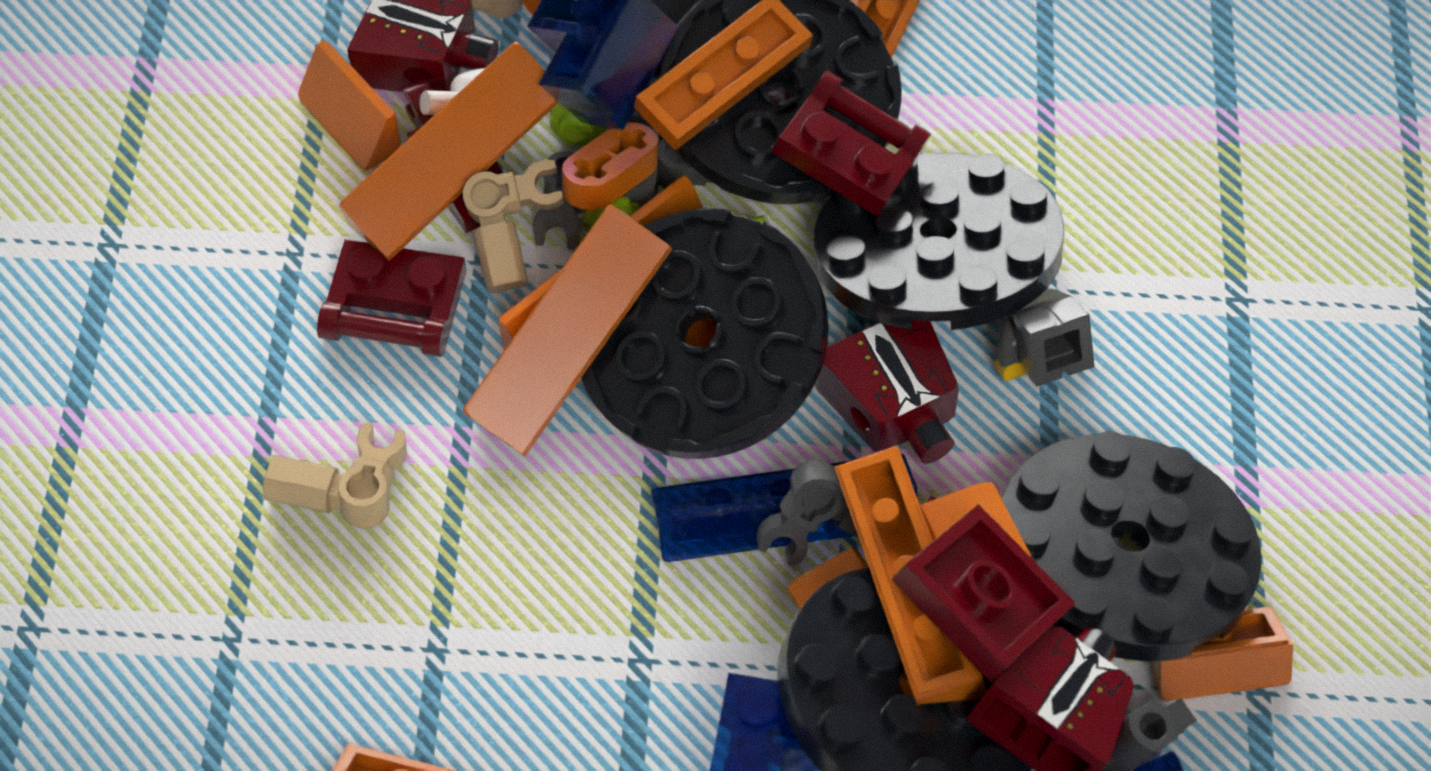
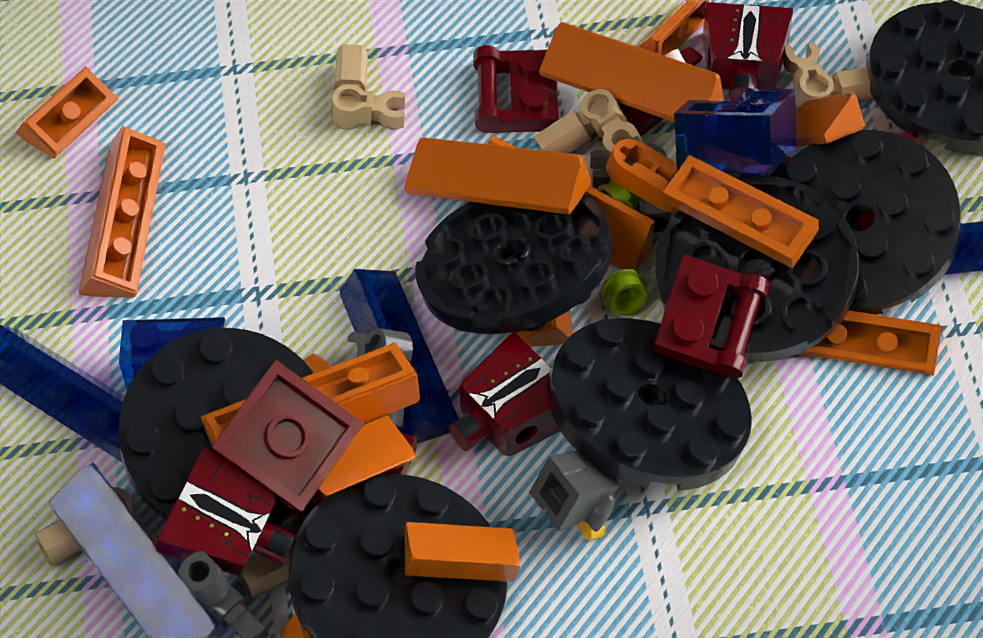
camera: 80 degrees right, 5 degrees down
(1123, 460) = (461, 552): none -> orange slope

